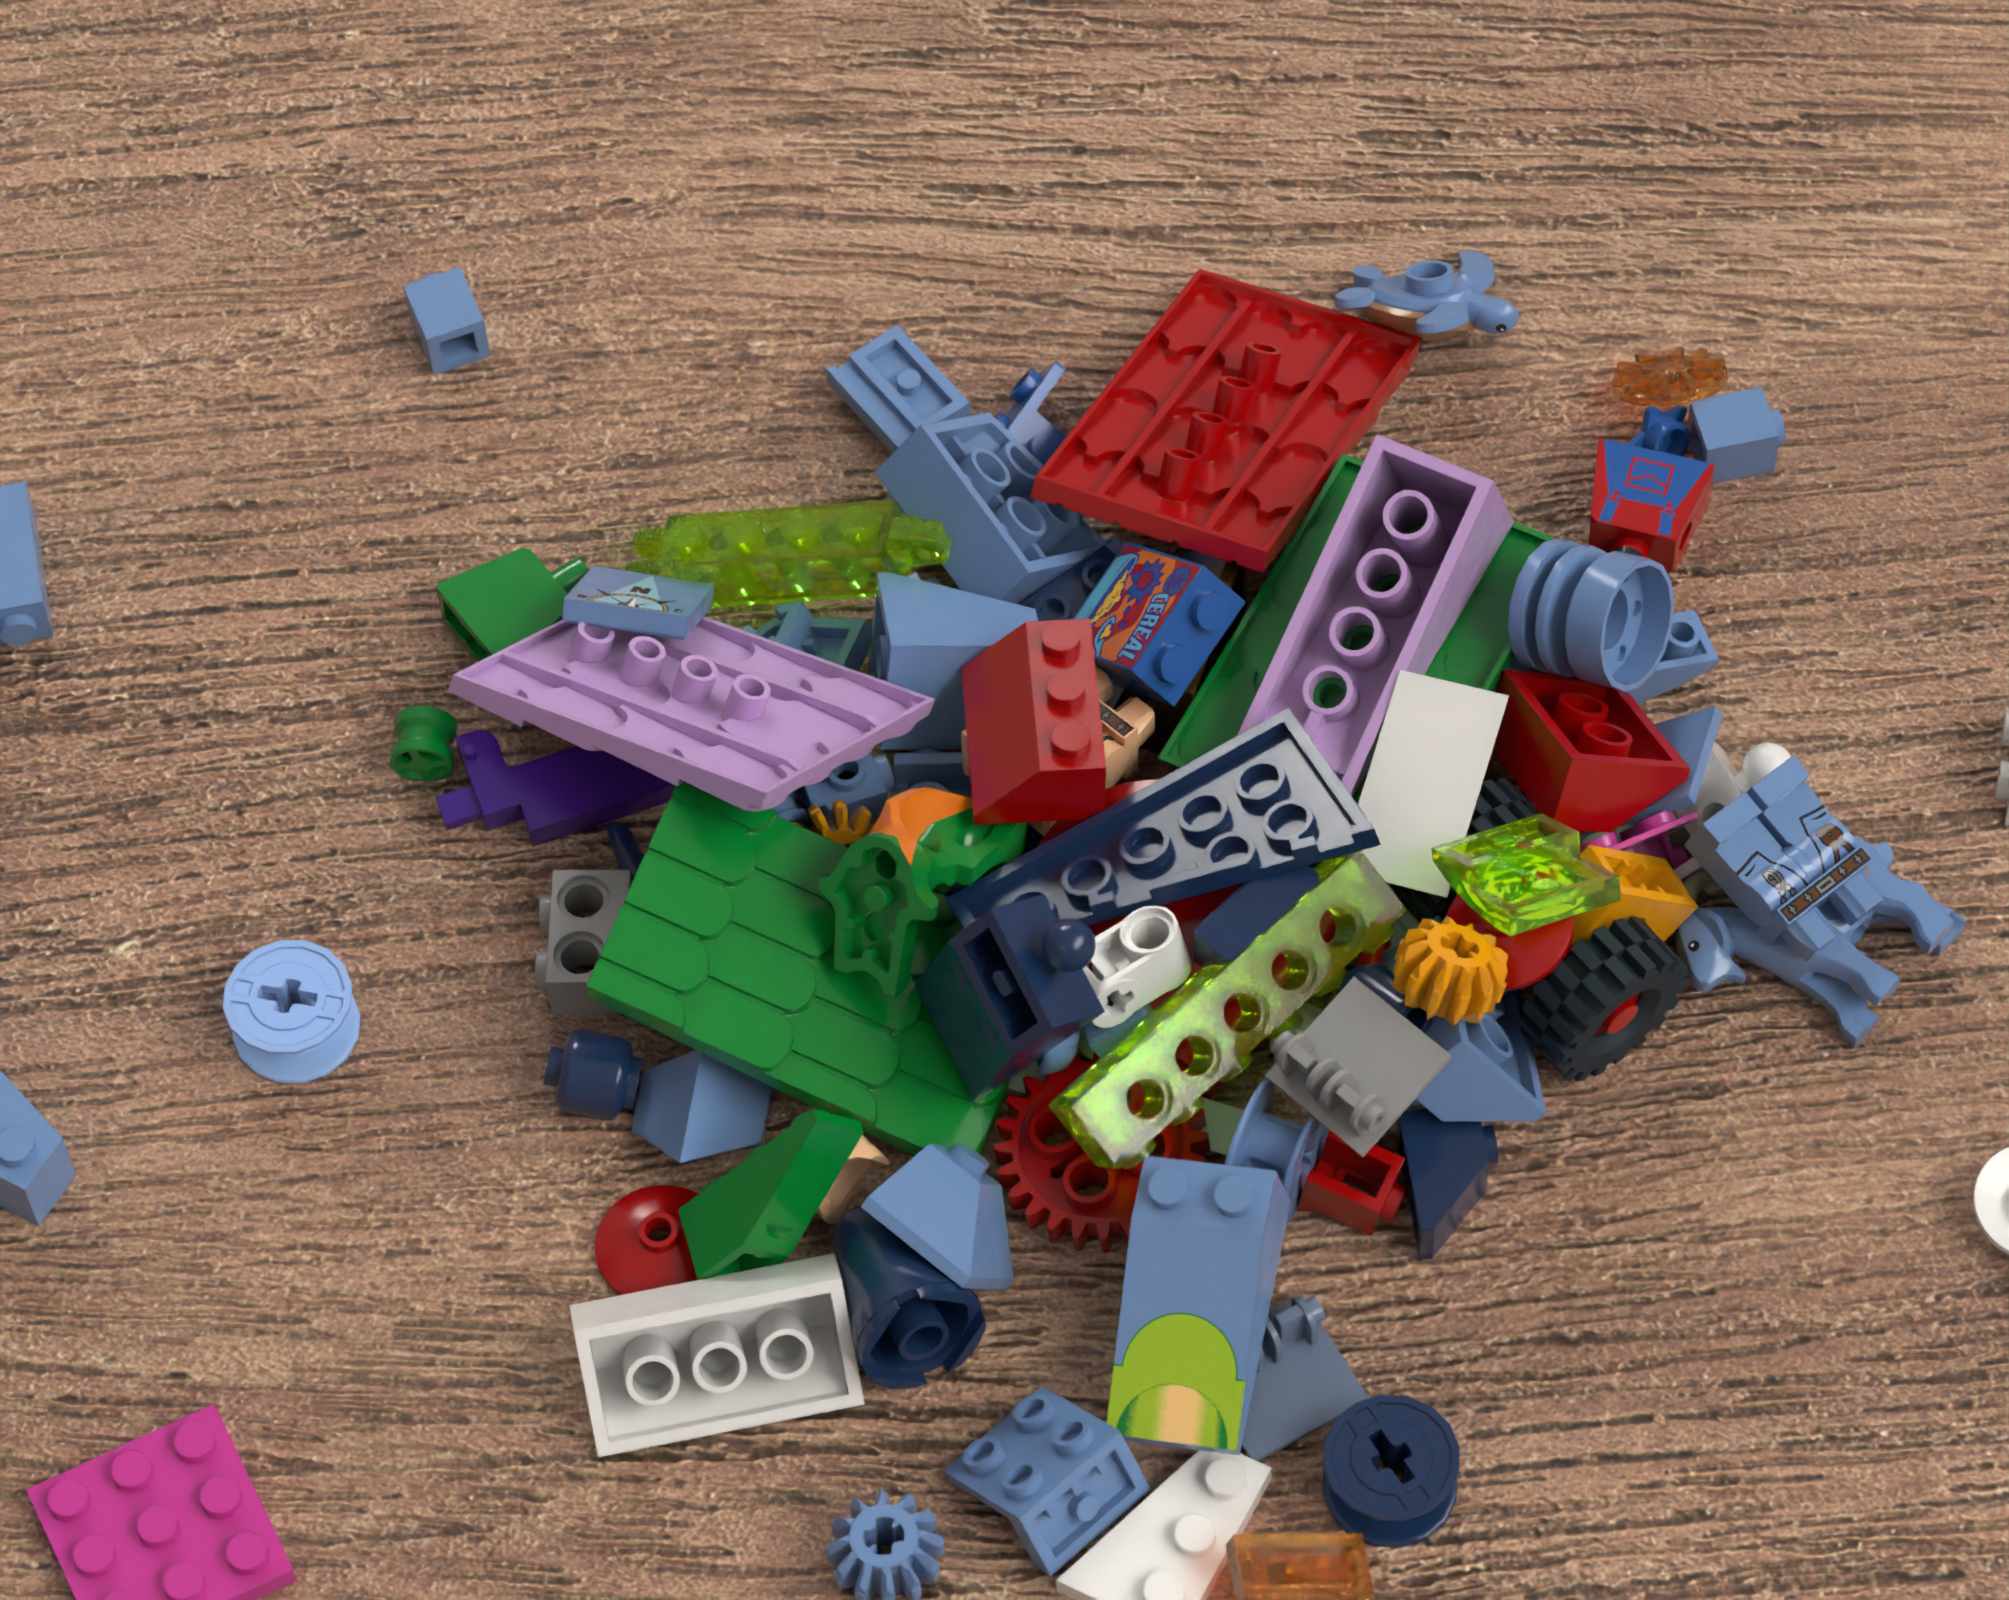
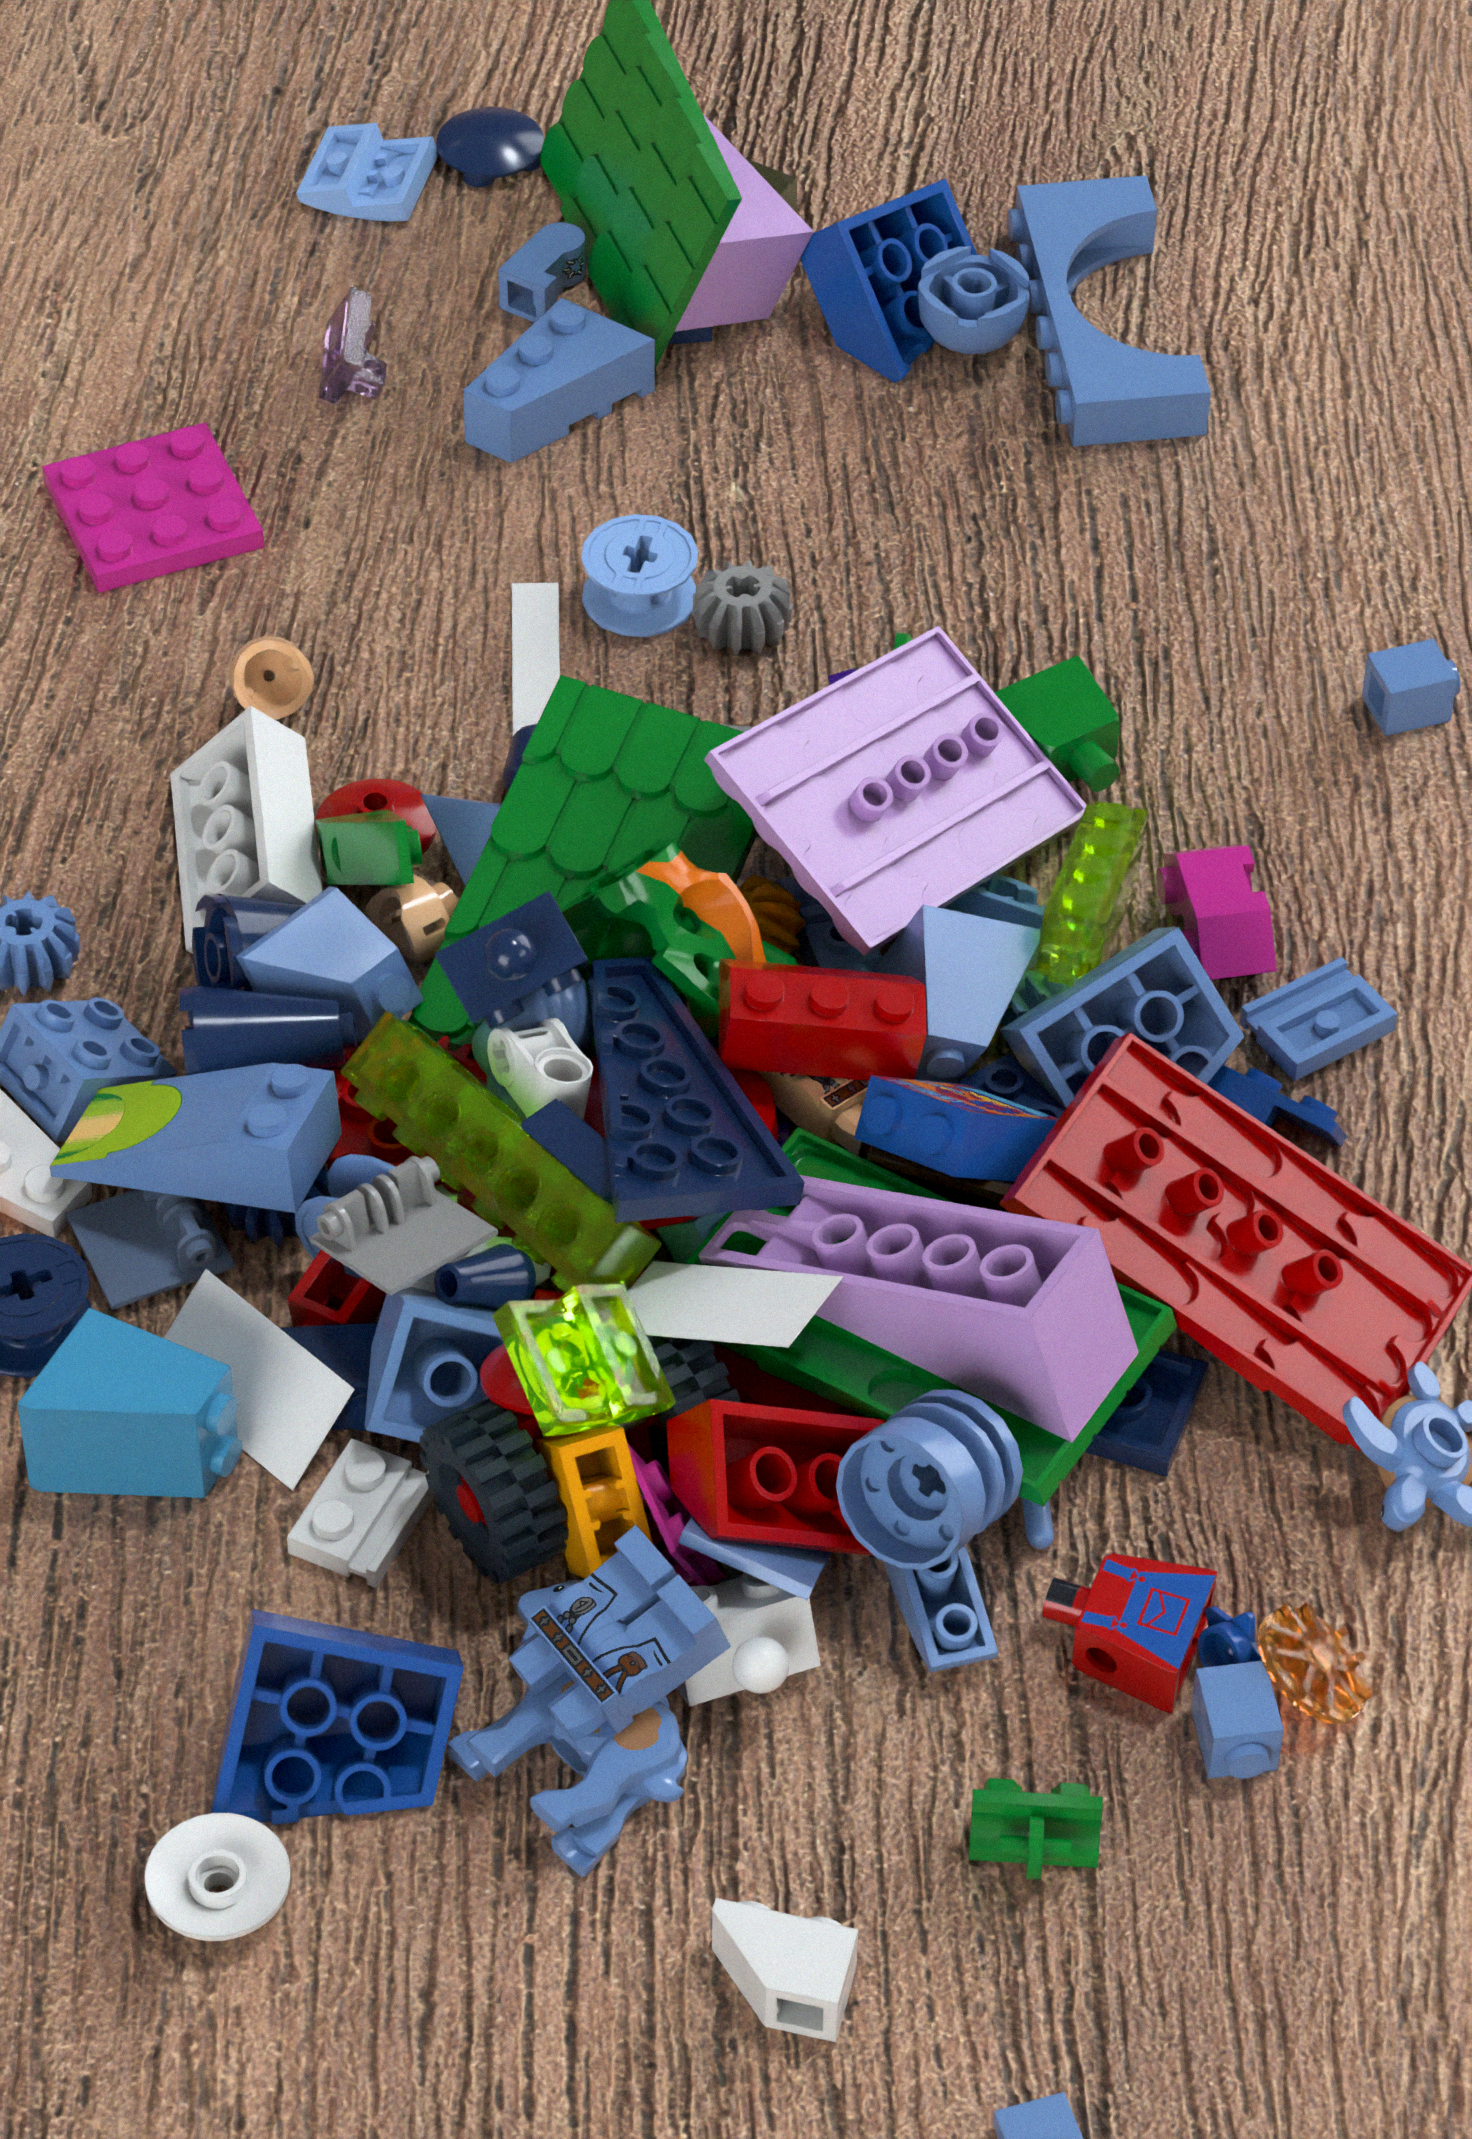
camera: 90 degrees right, 10 degrees down
(342, 907) = (742, 607): none -> light grey gear
(404, 1117) = (534, 649): none -> white sticker
(472, 1353) = (271, 676): none -> light nougat piece
(638, 602) = (1035, 778): medium blue tile -> none
(804, 455) = (1220, 913): none -> dark pink brick
(1045, 1285) = (260, 1028): none -> dark blue cone
(1450, 971) = (460, 1303): light orange gear -> none
(1465, 1248) = (280, 1387): none -> white sticker
(1541, 1336) = (128, 1415): none -> dark azure slope
(1593, 1145) = (361, 1513): none -> white plate
(1857, 1126) = (333, 1722): none -> blue wedge
(1877, 574) = (1035, 1826): none -> green hips

